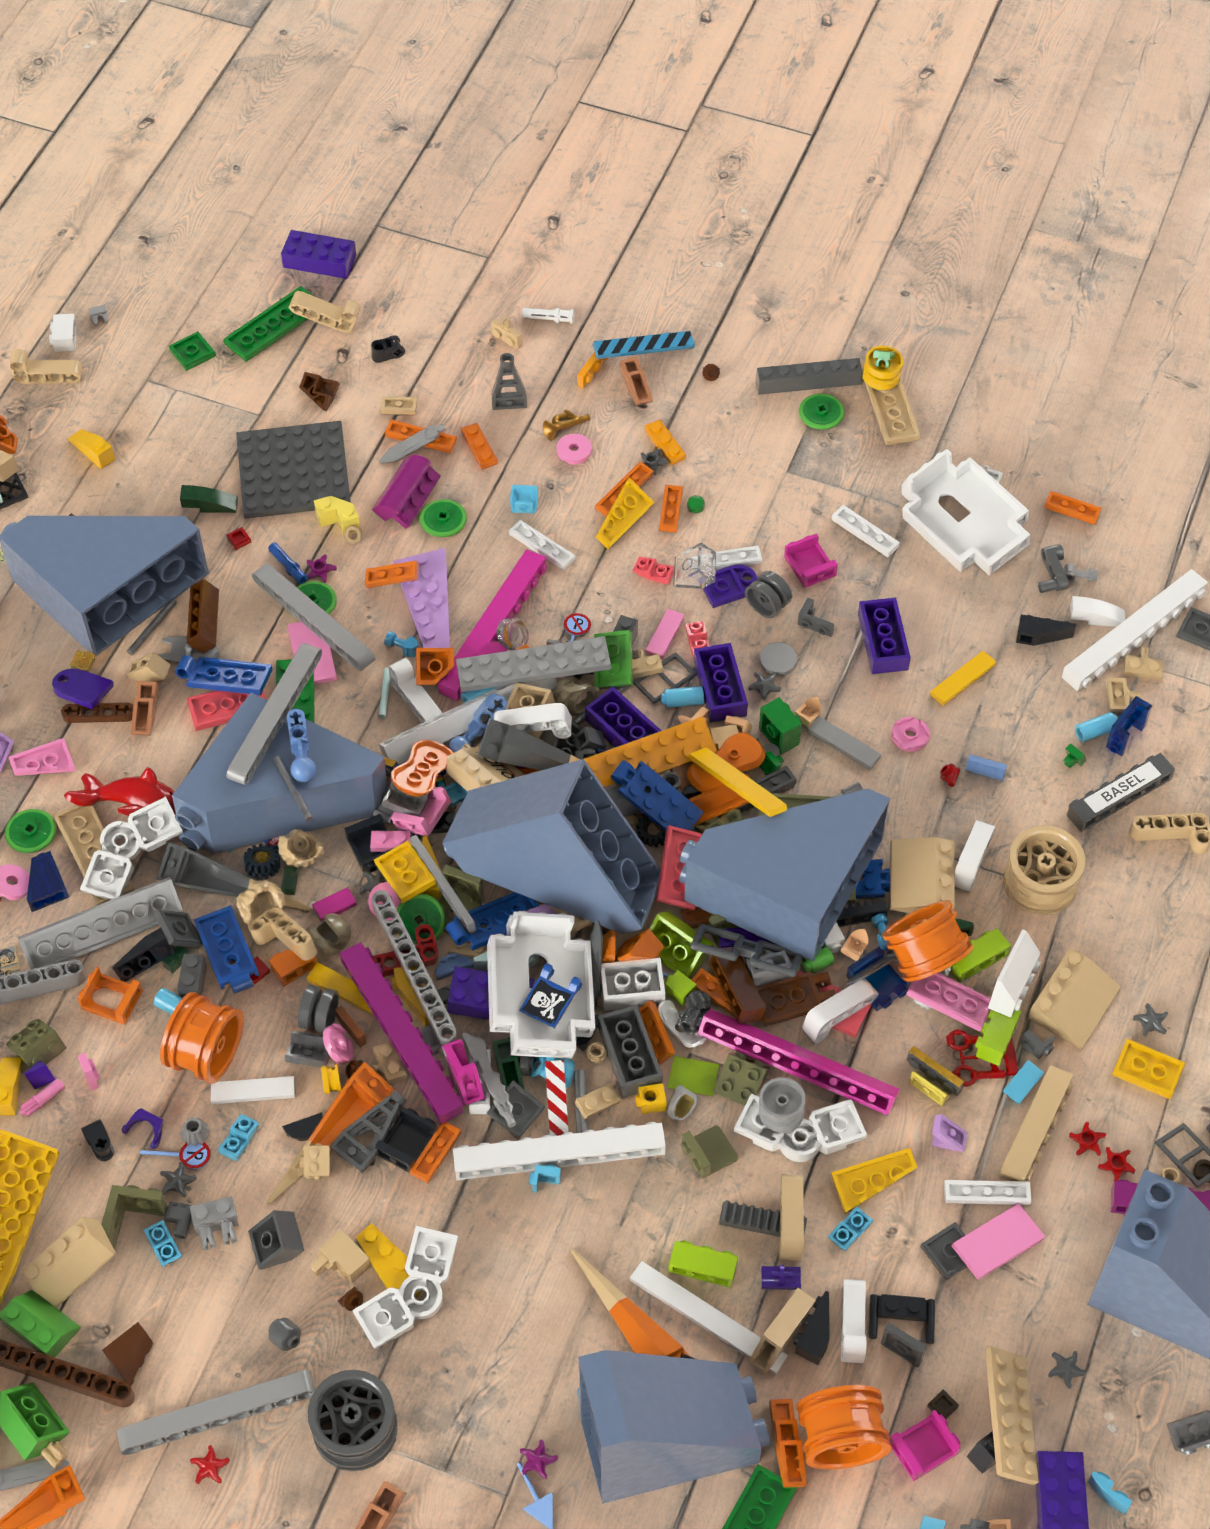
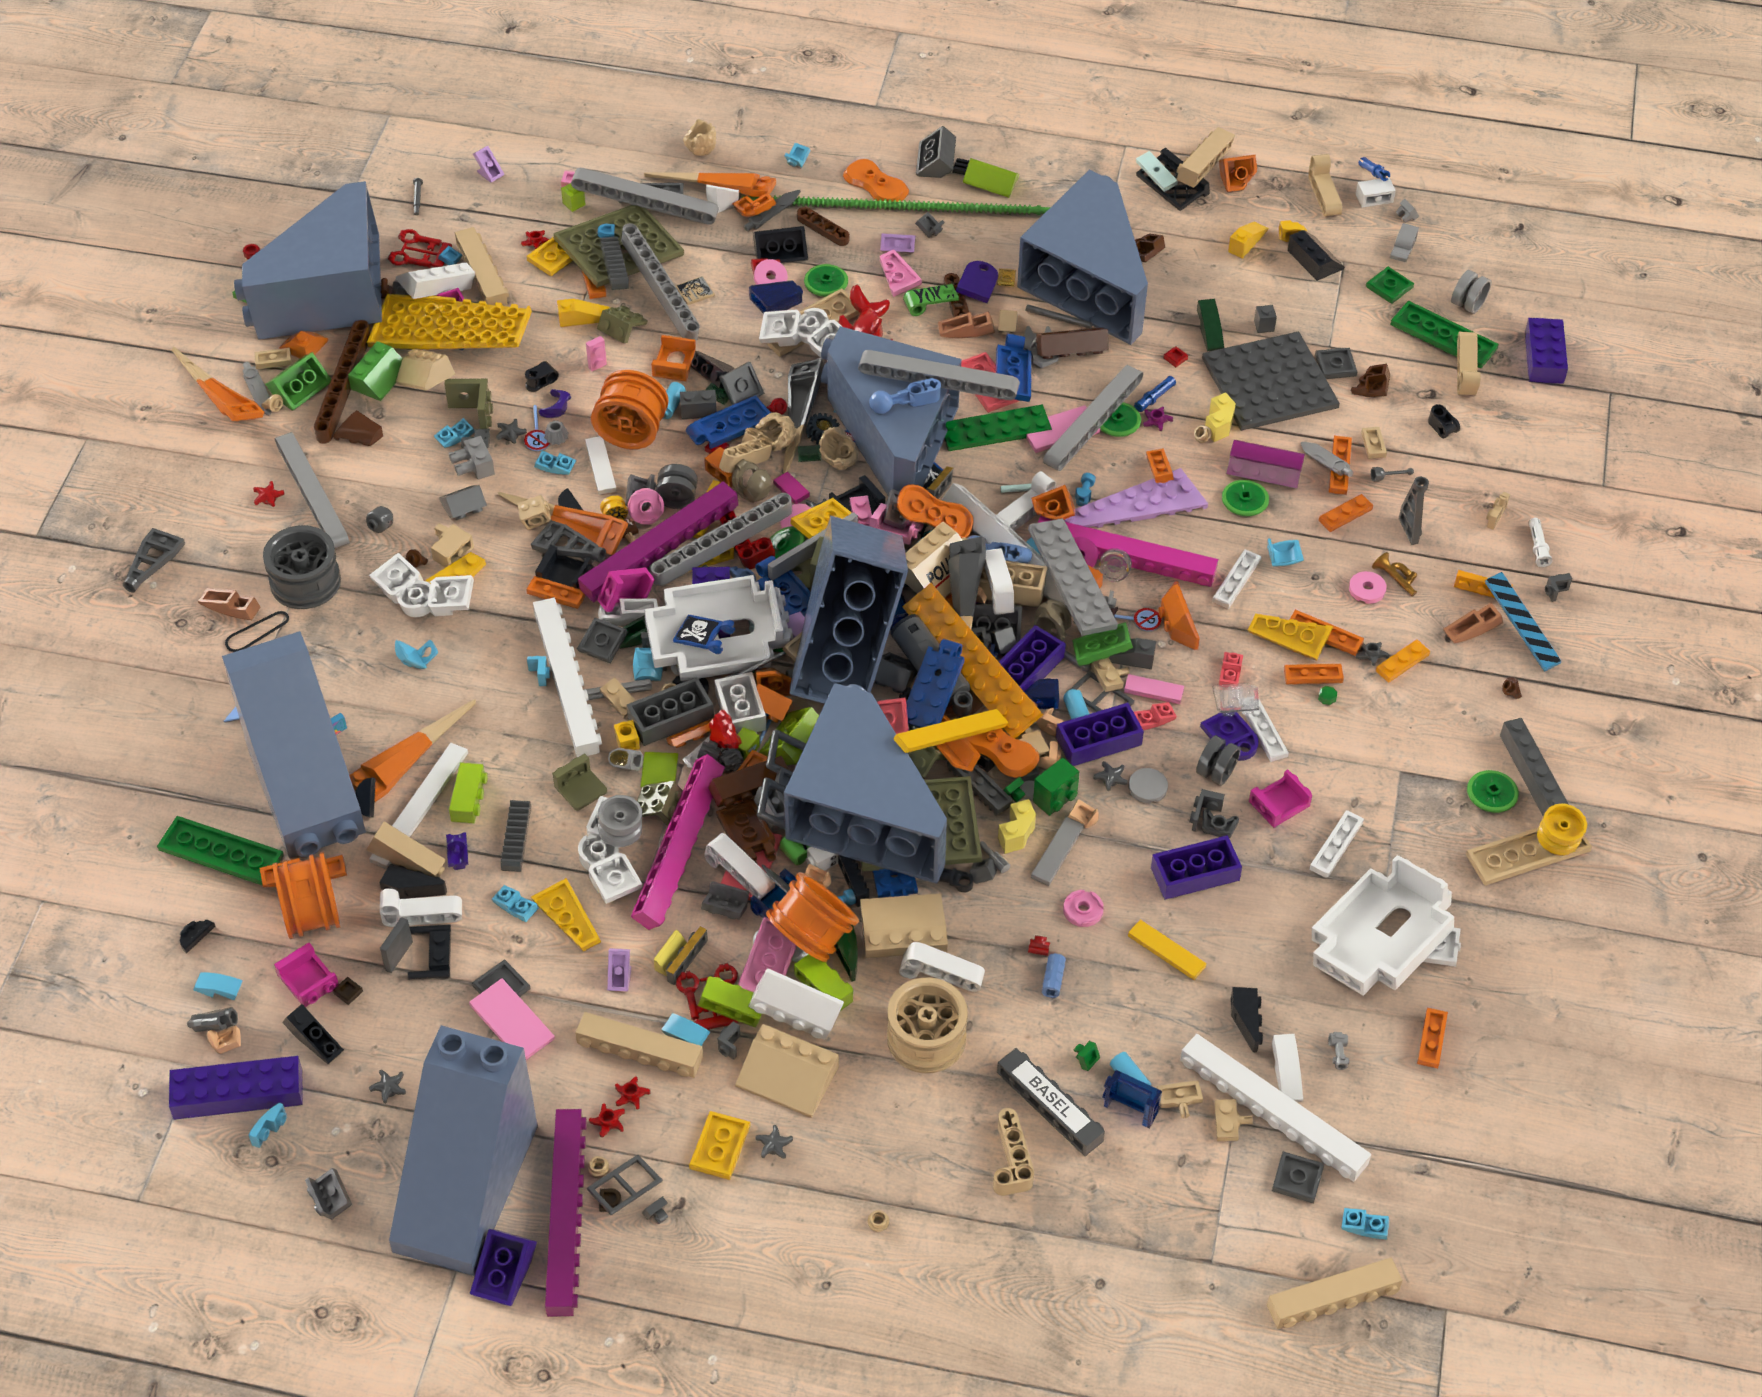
camera: 80 degrees right, 5 degrees down
(39, 1075) = (593, 328): dark purple slope -> none
(41, 1098) = (573, 335): bright pink piece -> none
(42, 321) = (1377, 170): none -> blue pin
(94, 734) = (918, 299): none -> bright green door
(95, 410) = (1288, 228): none -> yellow rock
(99, 925) = (736, 335): light grey plate -> none
(136, 400) = (1313, 255): none -> black slope
(142, 325) = (1404, 242): none -> light grey piece
(212, 901) = (778, 405): none -> red plate
(214, 453) = (1265, 318): none -> dark grey brick
(232, 287) = (1471, 291): none -> light grey wheel
(284, 412) = (1336, 363): none -> dark grey tile
(292, 788) = (858, 405): flat silver bar -> none
(350, 1026) = (668, 511): dark orange tile -> none
(431, 1482) = (264, 635): none -> black piece
(439, 410) = (1378, 473): none -> dark grey hinge
(490, 1078) = (624, 612): light grey sword -> none
(502, 1311) = (412, 656): none -> medium azure piece
(556, 1097) = (614, 665): sticker -> none
(583, 594) = (1178, 618): none -> orange wedge
(604, 317) = (1557, 584): none -> dark grey bracket
(660, 715) = (1044, 693): none -> clear blue slope
(679, 996) = (724, 731): none -> red rock
(791, 1218) = (515, 846): tan beam -> none
(814, 761) = (1015, 833): none -> light yellow brick
(832, 612) = (1218, 824): none -> dark grey piece
(874, 1029) = (726, 900): none -> flat silver bracket
(883, 355) = (1563, 816): tile -> none
(987, 1192) = (563, 1009): white plate -> none
(1011, 1416) = (333, 1034): tan plate -> none
(1051, 557) = (1353, 1018): dark grey beam -> none

